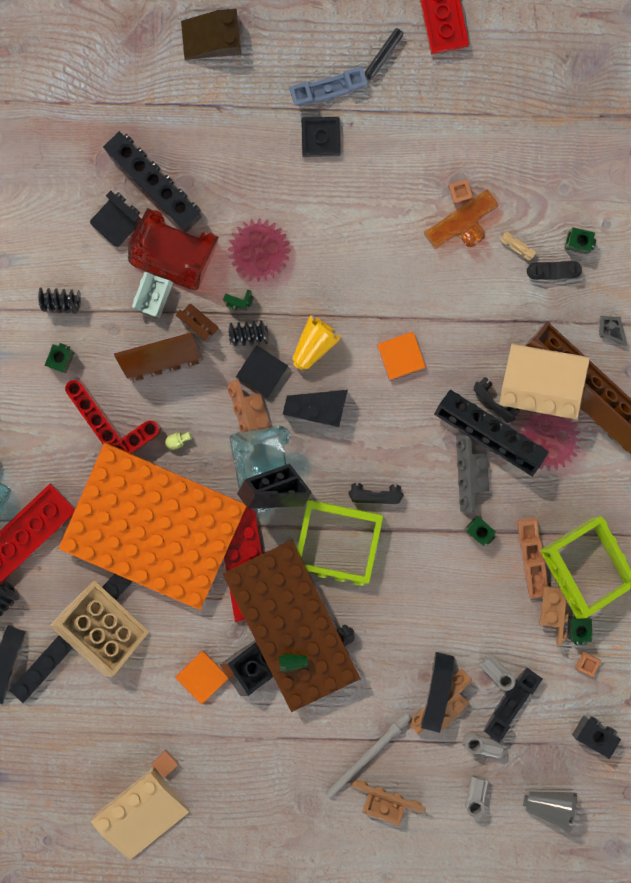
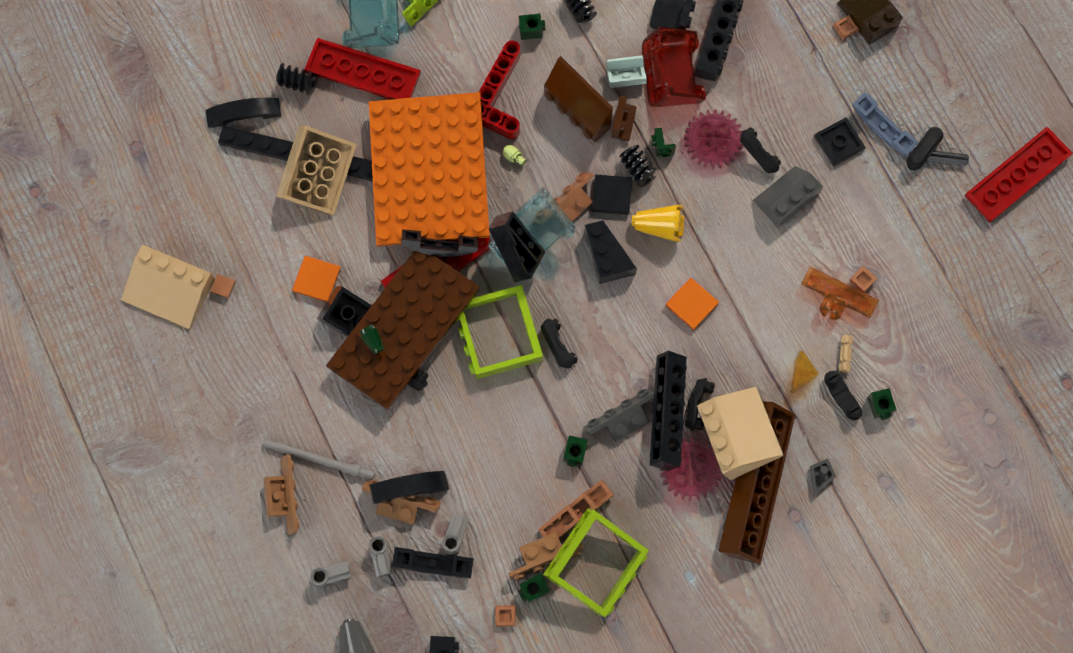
camera: 60 degrees right, 15 degrees down
(213, 66) = (845, 27): none -> nougat tile
(234, 556) = (440, 248): none -> black slope
(307, 214) = (769, 163): none -> black piece
(347, 213) = (788, 195): none -> dark grey slope
(370, 63) = (924, 148): none -> black piece
(516, 294) = (803, 372): none -> clear yellow slope

